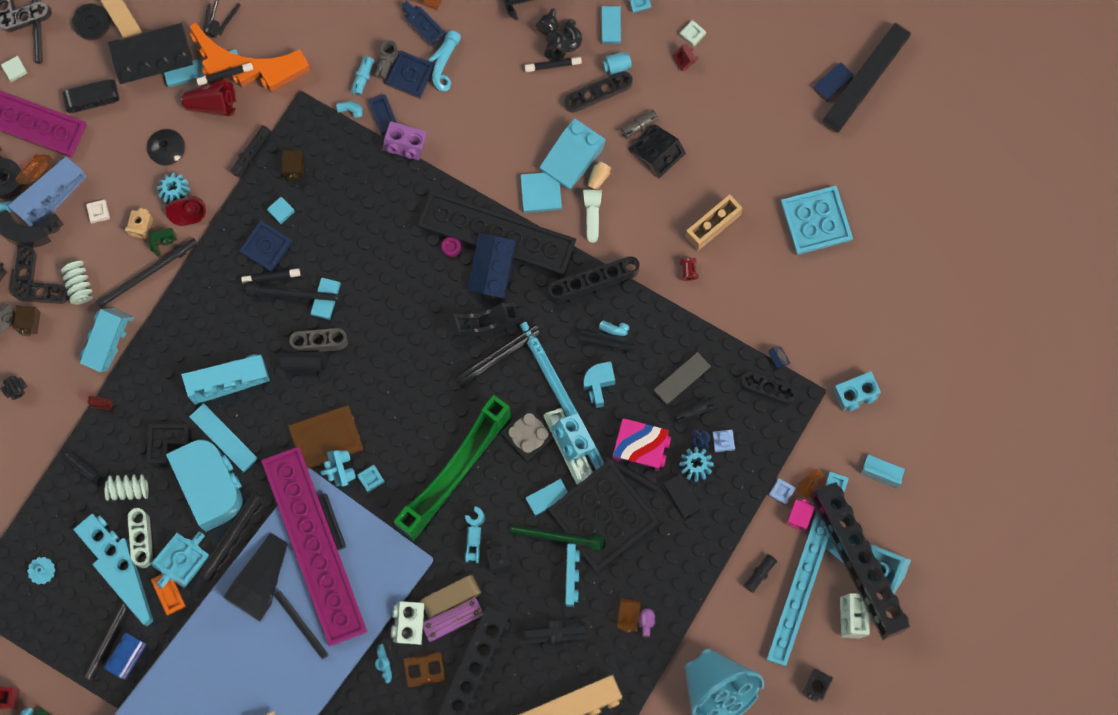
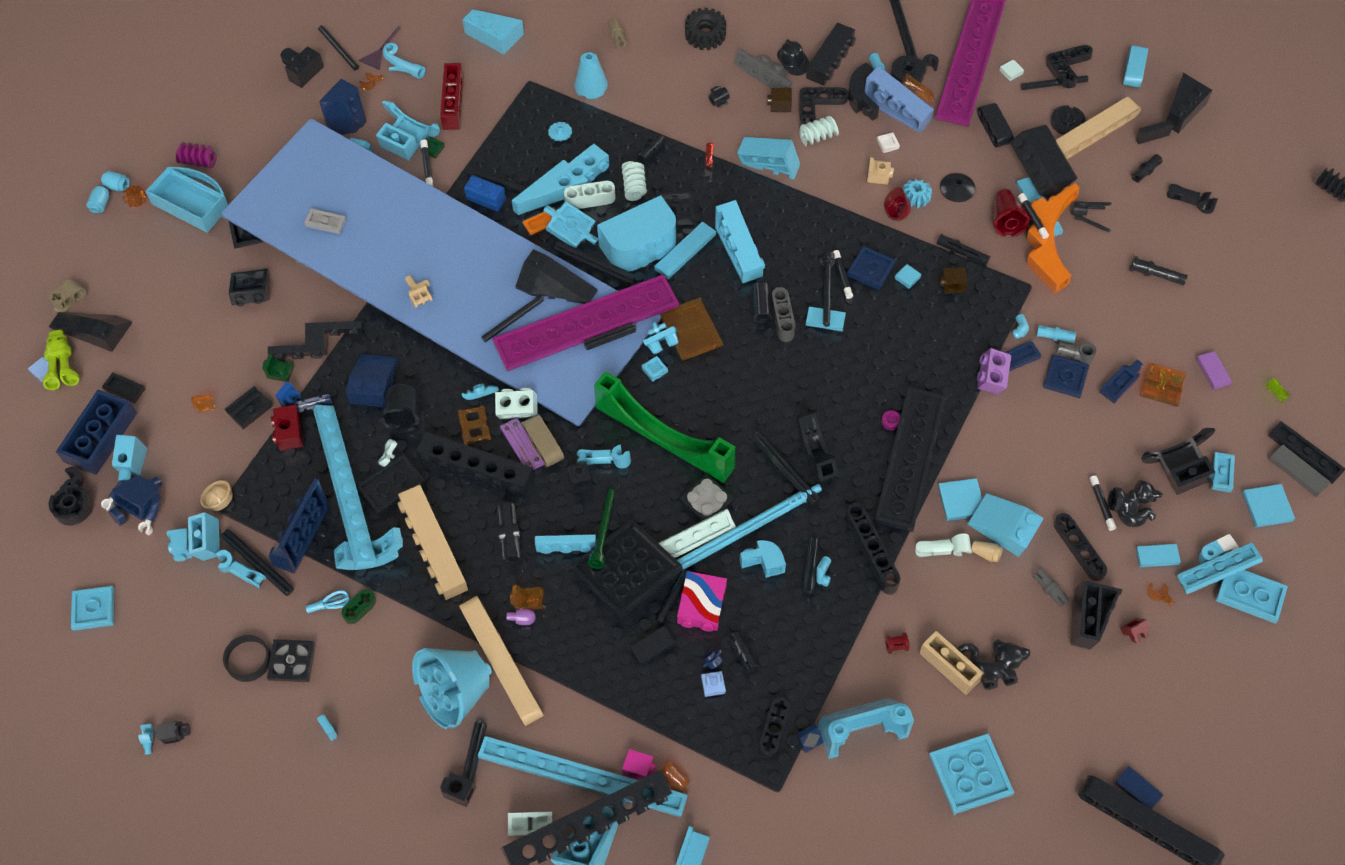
camera: 85 degrees right, 15 degrees down
(163, 238) = (867, 188): dark green bracket -> none
(179, 251) = (857, 204): black bar -> none
(442, 55) = (1090, 400): medium azure plant -> none
(492, 265) = (874, 454): dark blue slope -> none
(546, 497) = (644, 518): medium azure tile -> none
(573, 437) = (704, 537): medium azure brick -> none
(617, 63) = (1115, 561): medium azure brick -> none
(652, 26) = (1158, 597): none -> clear orange piece
(658, 149) = (1024, 607): black bracket -> none
(671, 92) = (1091, 612): none -> black wedge
(682, 378) = (776, 640): dark grey tile -> none
(690, 642) = (501, 661): none -> tan beam
(692, 33) = (1165, 637): light aqua tile -> none
(693, 457) = (685, 648): medium azure gear -> none
(707, 173) = (1006, 658): none -> black animal
(760, 573) = (575, 728): black pin -> none
(767, 325) = (836, 726): none -> medium azure windscreen
(780, 671) = (474, 748): none -> black axle
(782, 491) = (664, 748): light blue tile -> none
(854, 387) = (783, 821): medium azure brick -> none

